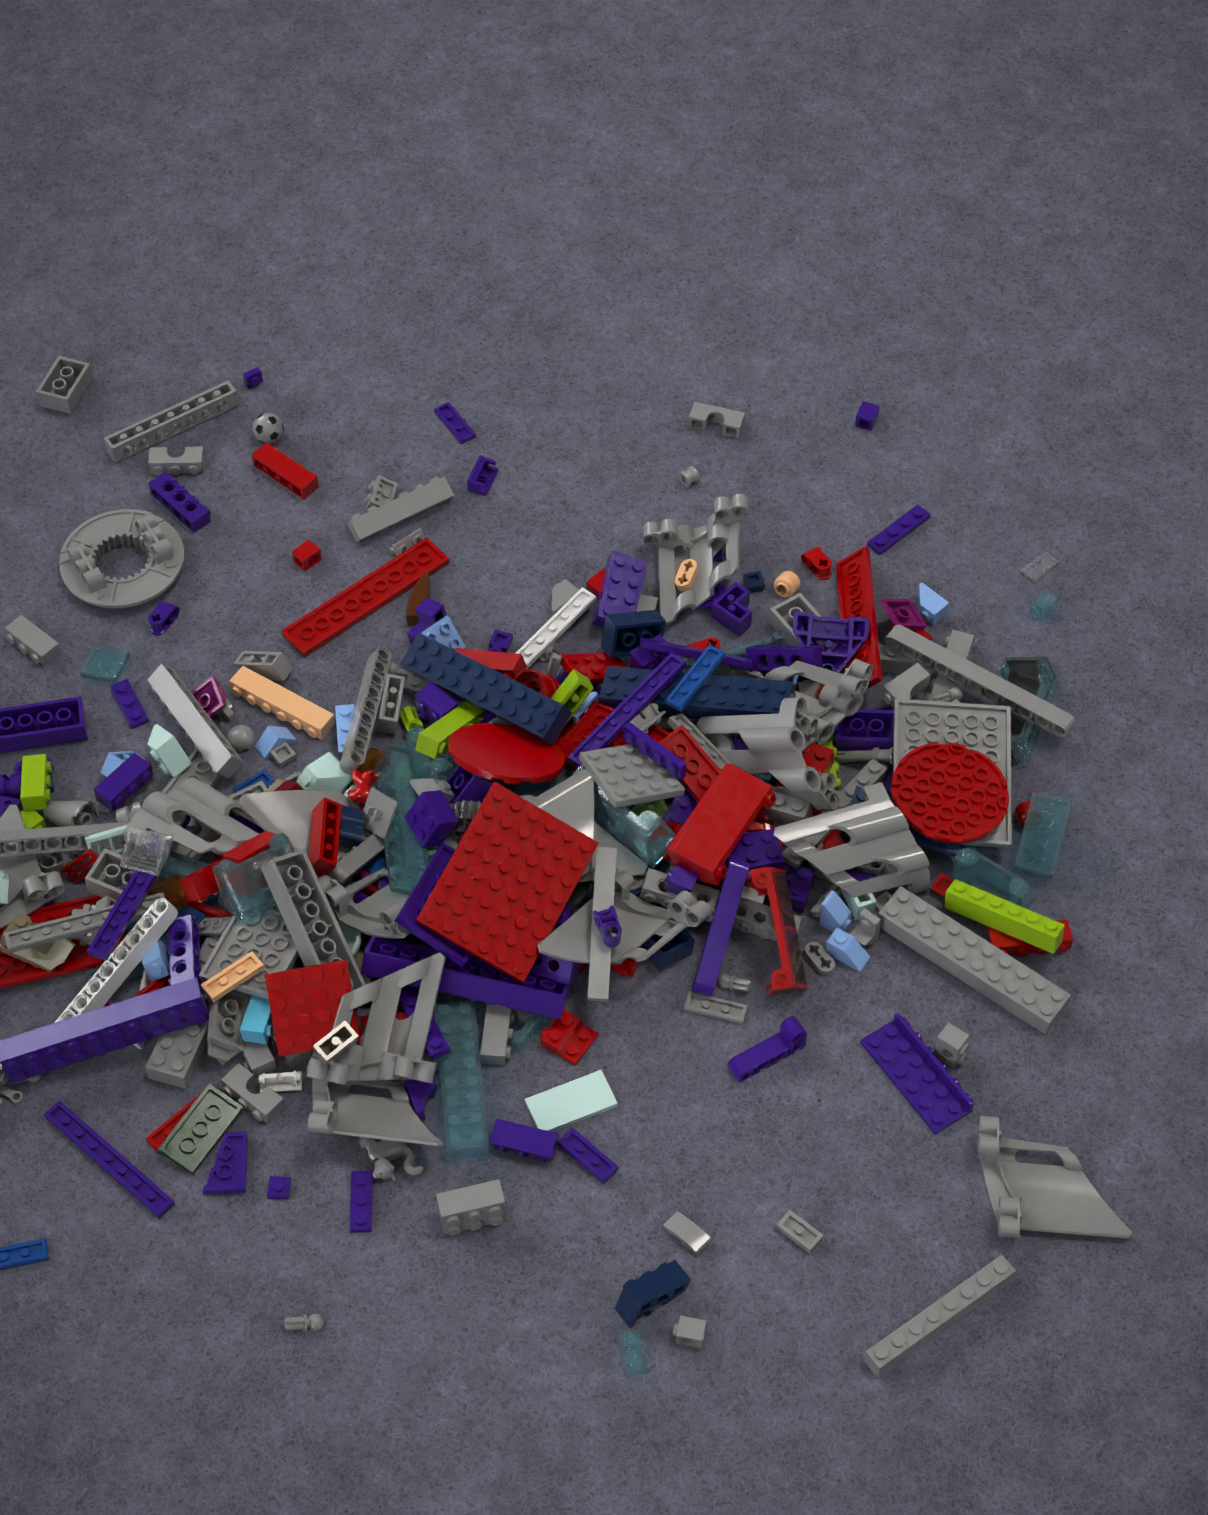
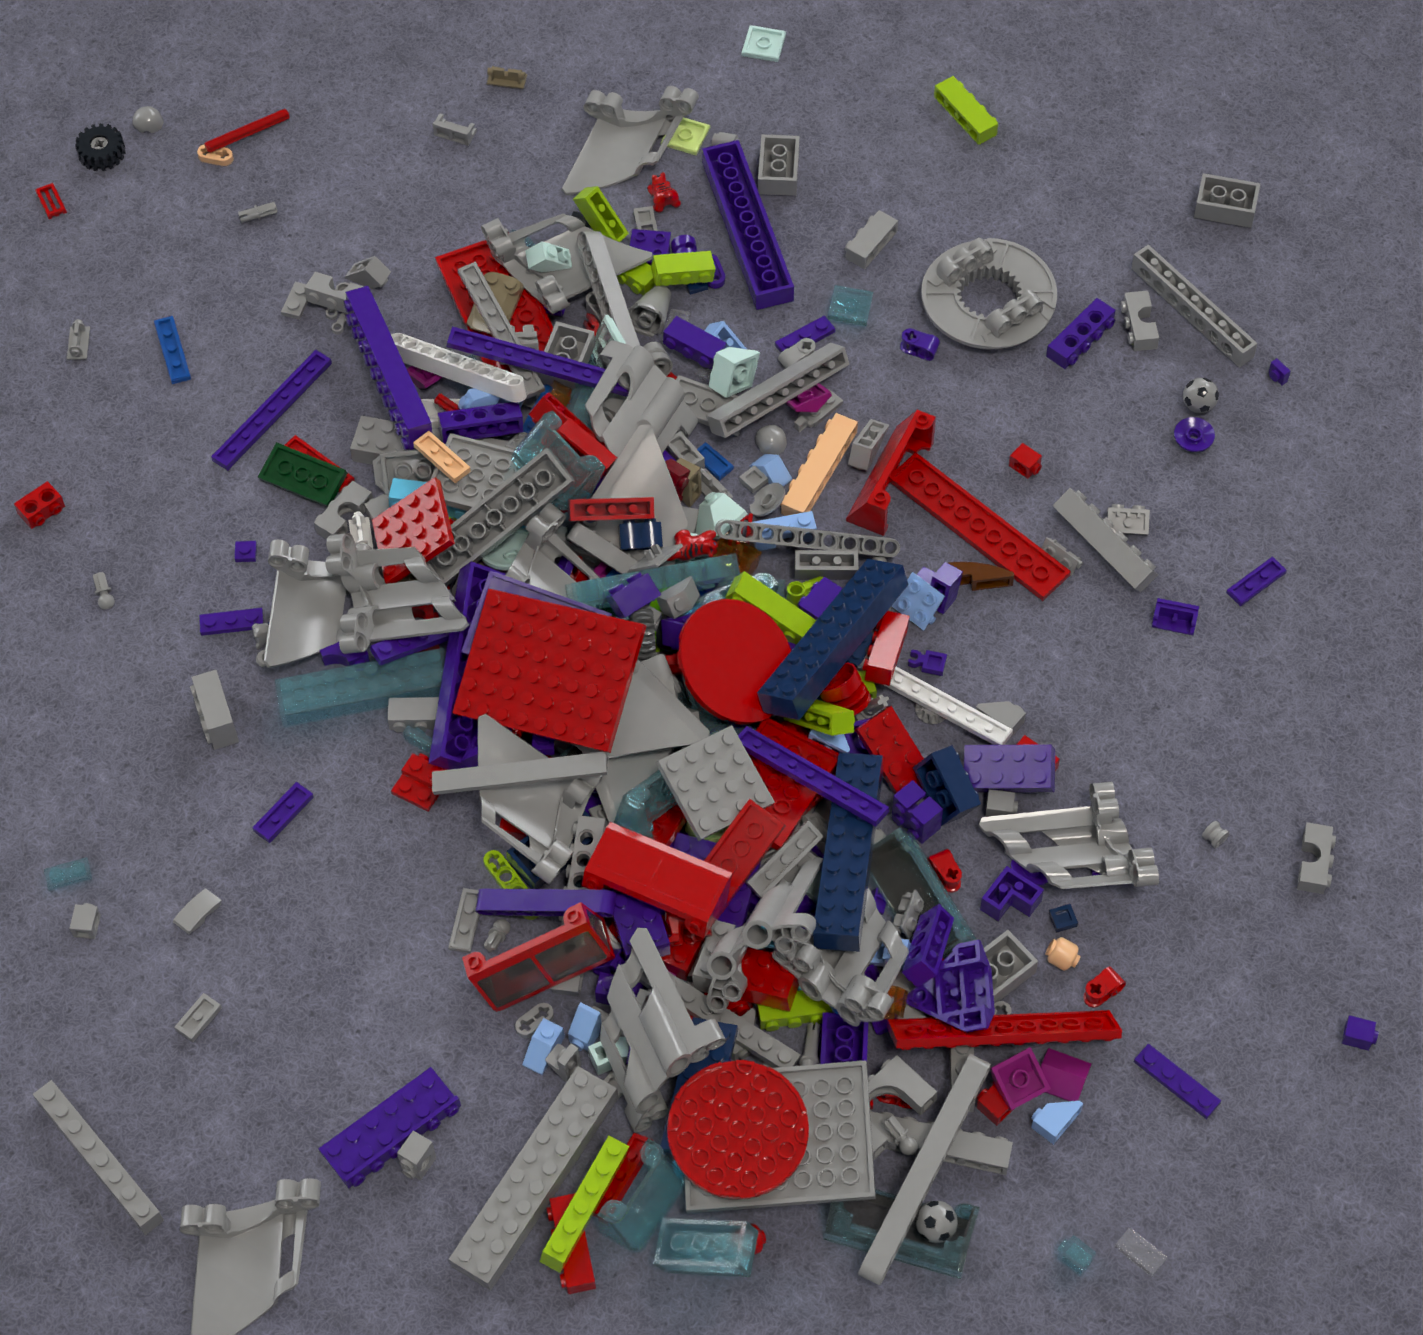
camera: 85 degrees right, 5 degrees up
(146, 850) = (581, 358): clear slope -> none
(153, 707) = (796, 352): none -> light grey piece
(181, 1388) = (38, 504): none -> red brick
(230, 1167) = (261, 507): dark purple wing -> none
(285, 471) = (1144, 423): red brick -> none
(302, 740) = (767, 499): none -> light grey dish
(306, 435) = (1194, 427): none -> dark purple dish
(306, 650) = (872, 503): none -> red windscreen
(336, 1042) = (359, 548): dark tan slope -> none
(524, 1140) = (296, 751): dark purple brick -> none
(571, 1102) = (346, 792): light aqua tile -> none
(607, 923) = (509, 774): dark purple piece -> none
(651, 717) = (794, 793): light grey hinge -> none
(651, 1290) = (128, 880): dark blue wedge -> none
(655, 751) = (748, 790): dark purple plate -> none
(680, 880) = (584, 848): dark purple brick -> none
(681, 967) = (505, 867): none -> lime beam
(682, 574) = (1052, 839): light nougat beam -> none
(692, 652) = (916, 847): dark purple tile -> none
(695, 678) = (858, 837): blue tile -> none
(768, 1052) = (421, 986): dark purple beam -> none
(890, 590) = (1064, 1074): none -> magenta slope
(1022, 678) = (936, 1221): none -> light grey piece

